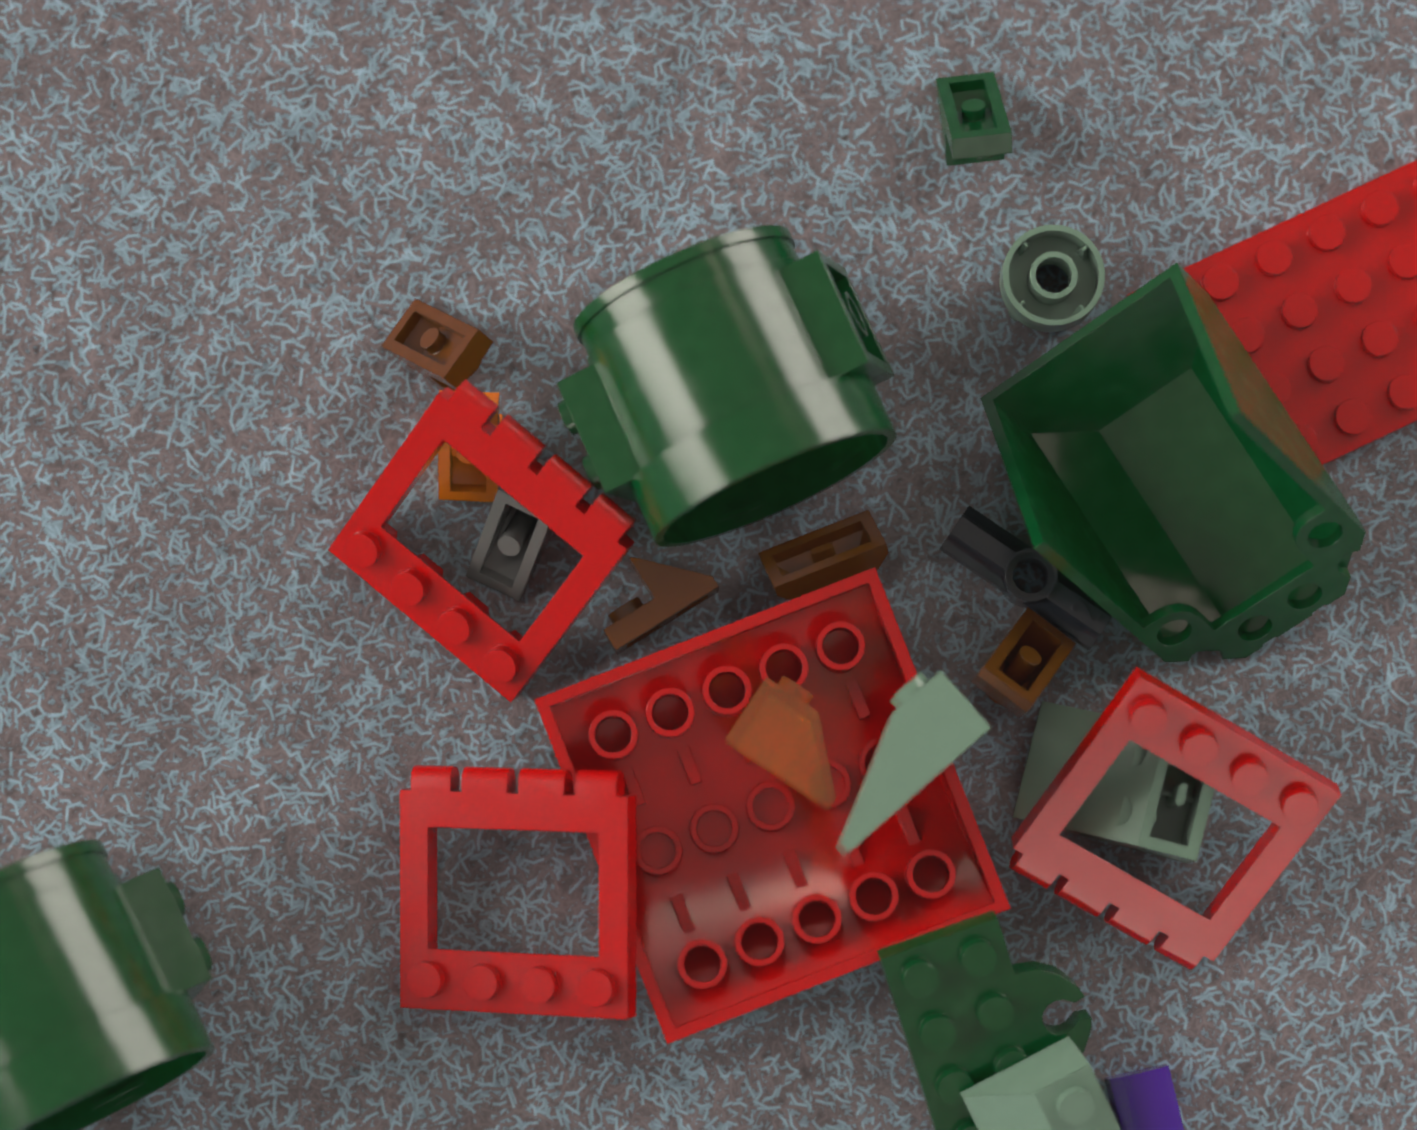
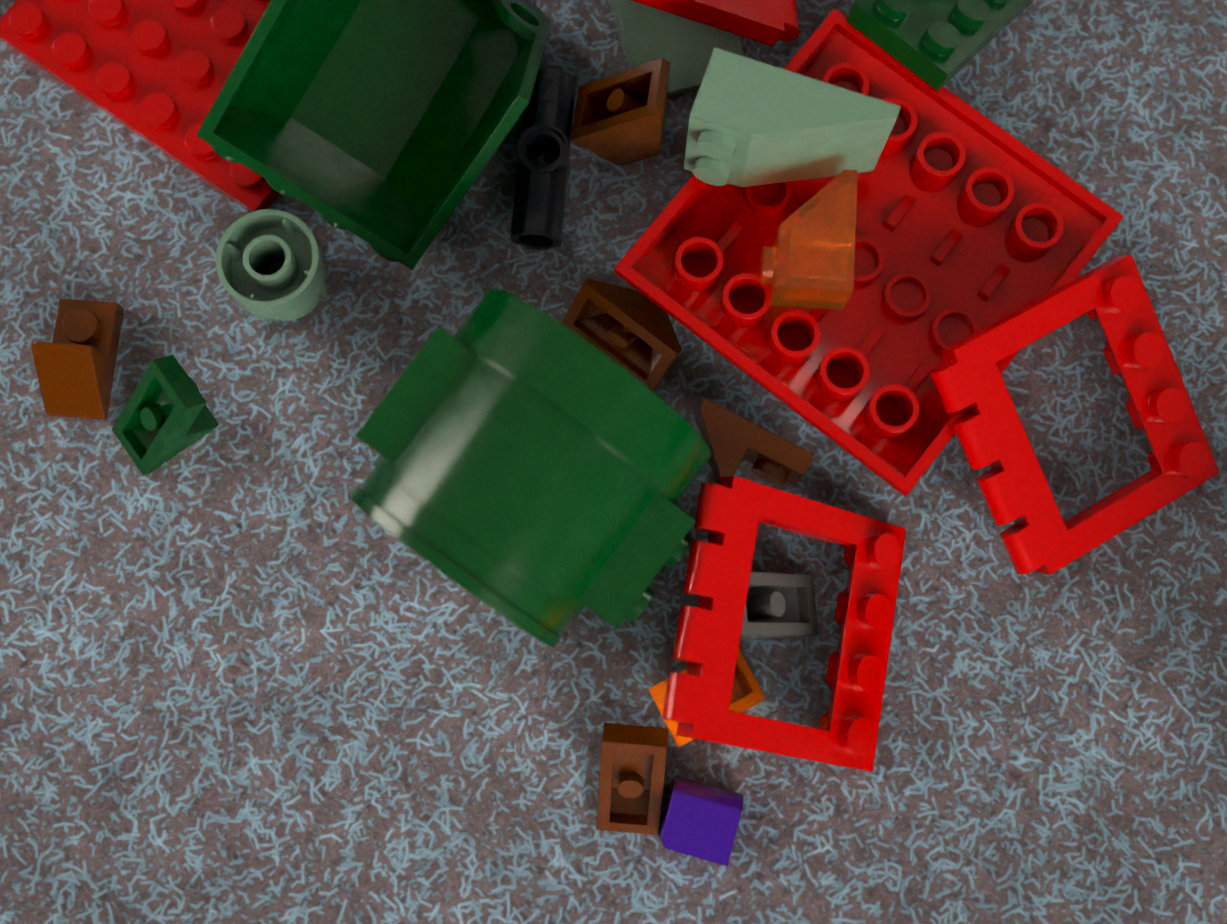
camera: 115 degrees left, 5 degrees down
(371, 382) = (701, 820): none -> dark purple piece
(1072, 77) = (81, 360): none -> reddish brown slope

